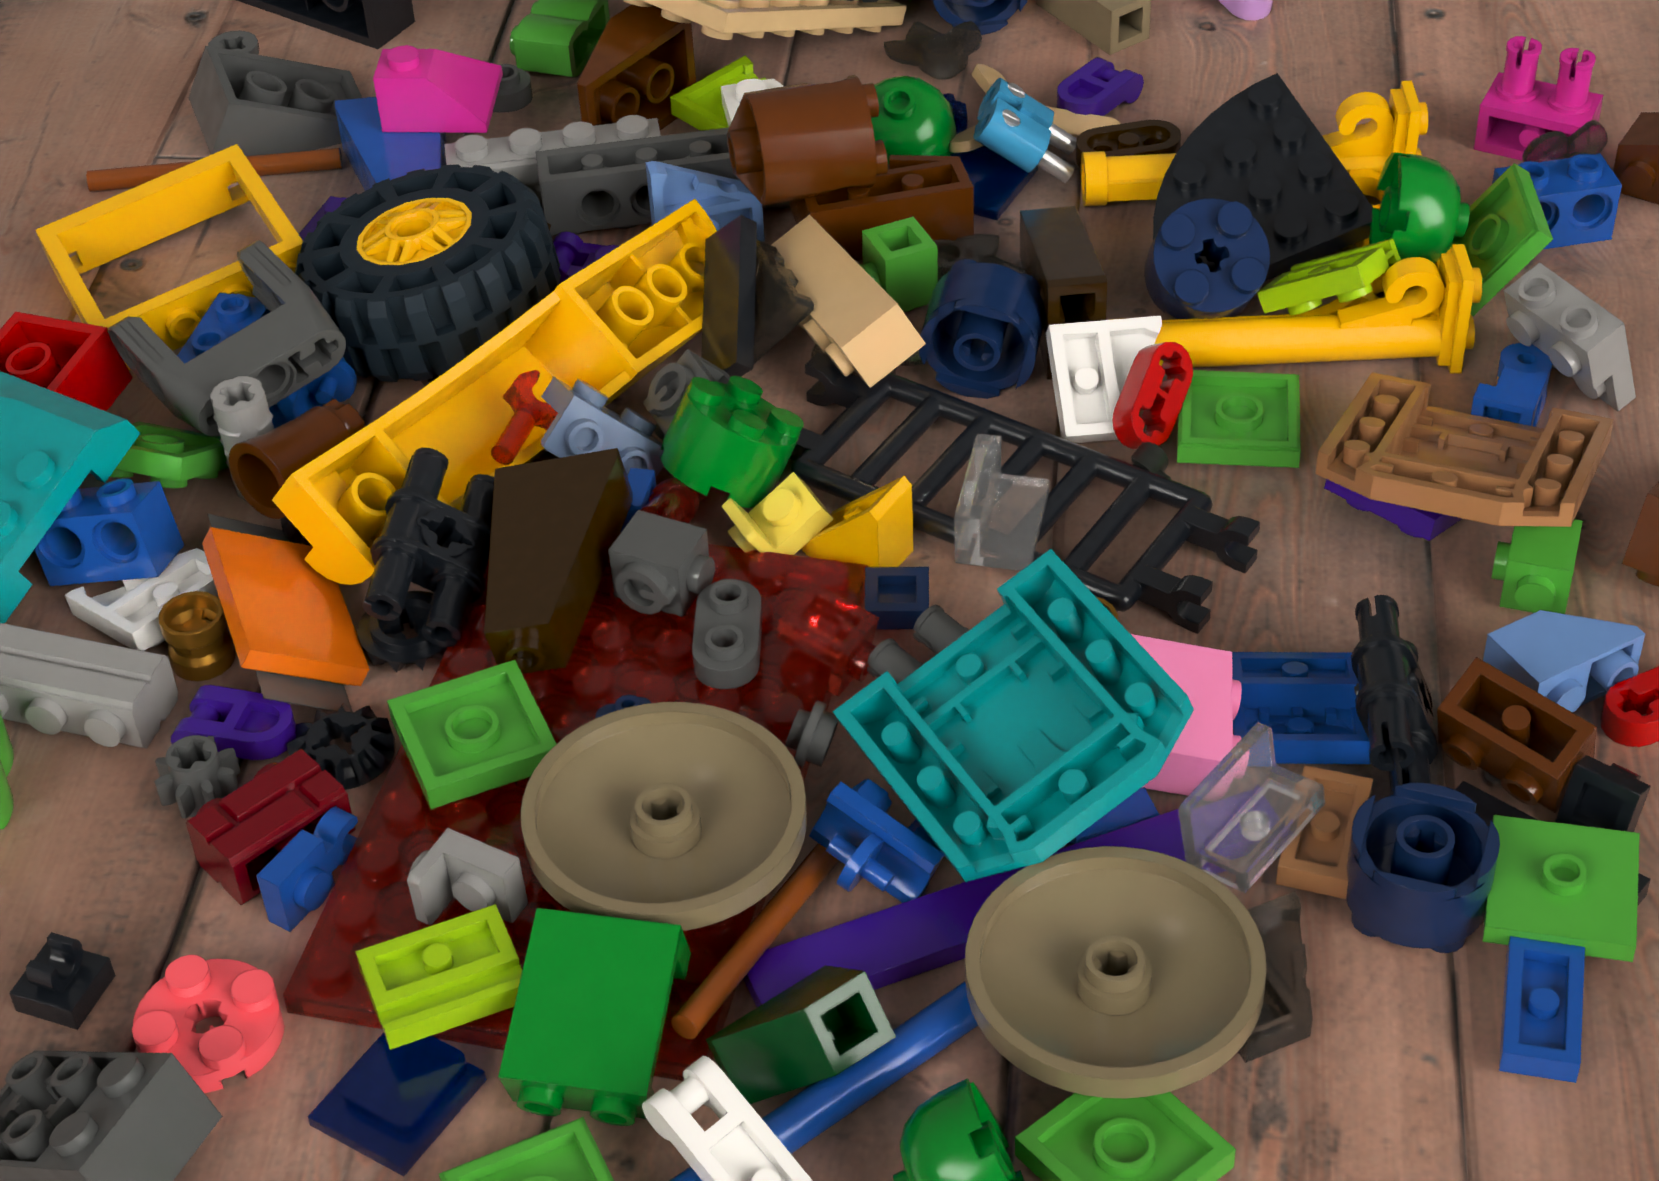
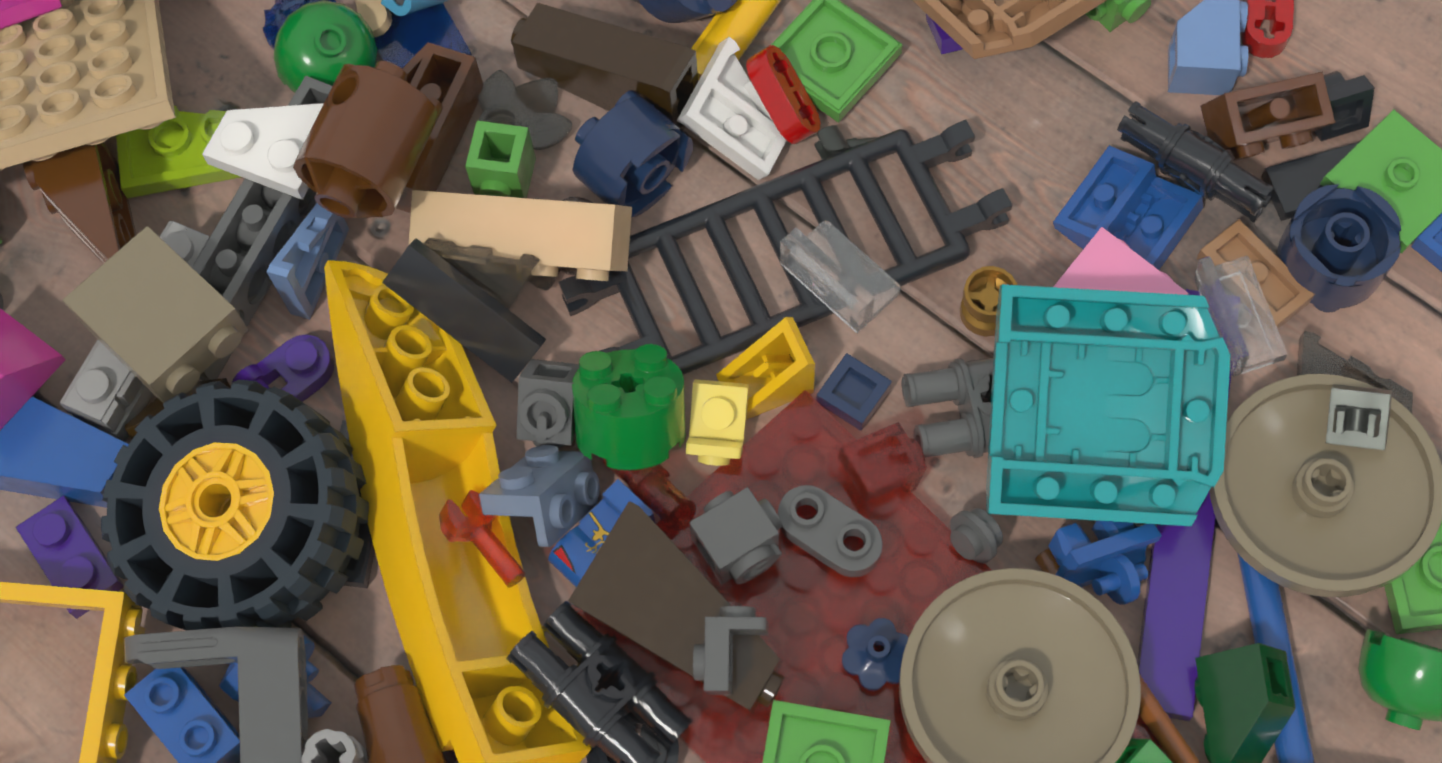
camera: 55 degrees left, 25 degrees up
(516, 563) = (715, 658): none -> dark grey bracket
(554, 128) = (157, 315): none -> dark tan brick
(1209, 944) = (1358, 417): none -> tile

